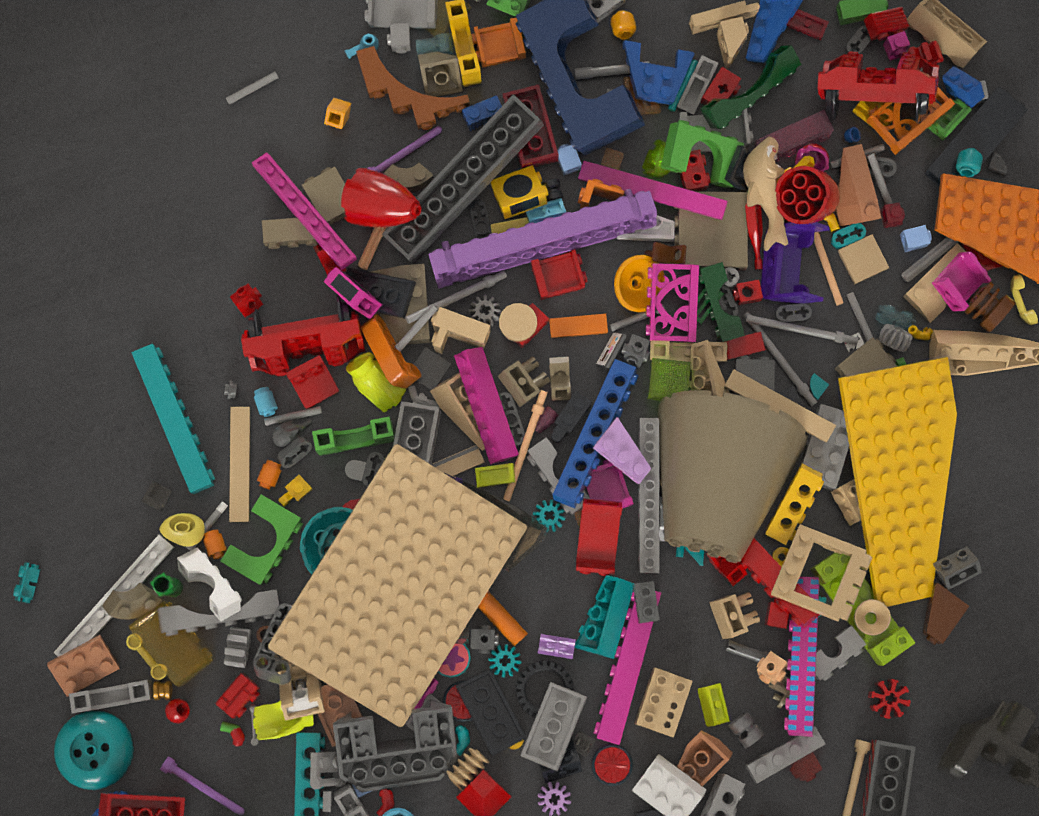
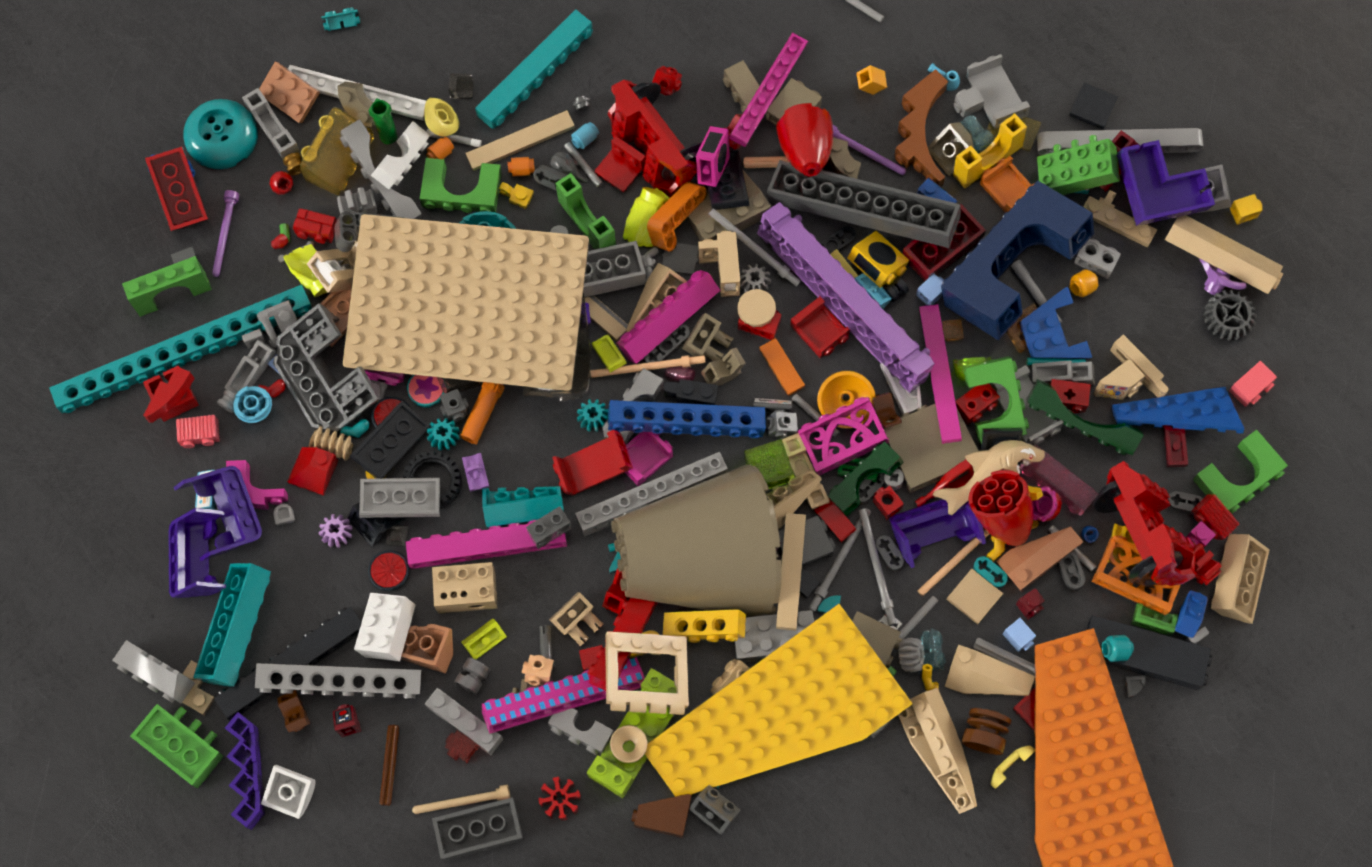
camera: 70 degrees right, 10 degrees down
(416, 327) = (708, 222): light grey bar -> none
(597, 188) = (911, 318): orange bracket -> none
(622, 452) = (678, 445): lavender wing -> none
(879, 178) = (1060, 575): light grey bar -> none
(960, 280) = (998, 691): dark pink panel -> none

